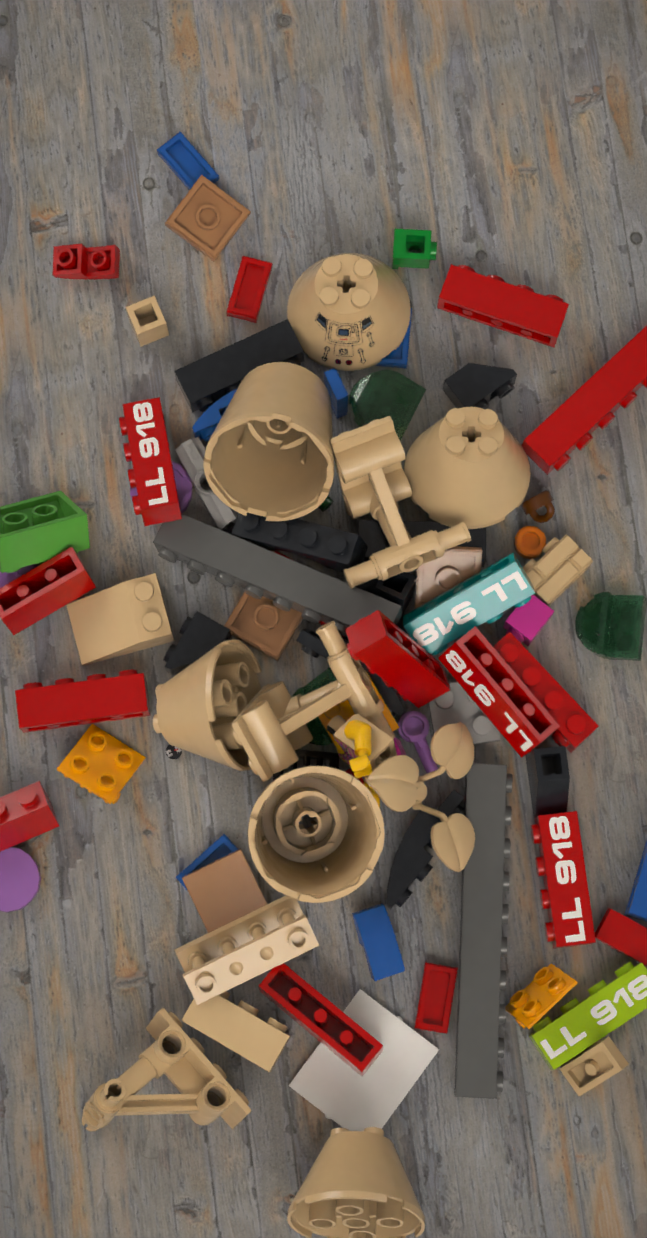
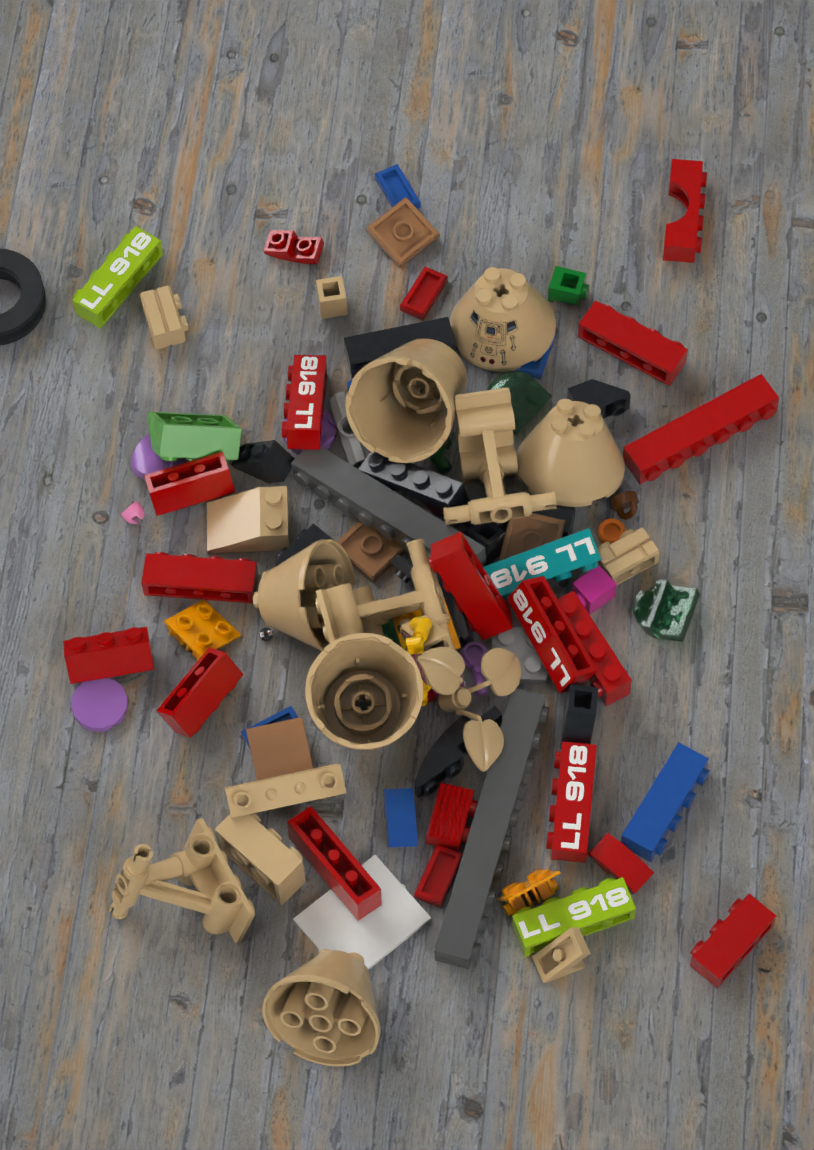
camera: 15 degrees right, 15 degrees down
(119, 845) = (200, 692): none -> red brick
(121, 542) = (264, 461): none -> black slope
(337, 392) = (473, 374): blue tile -> none
(434, 929) = (451, 817): none -> red brick
(517, 90) = (681, 236): none -> red arch

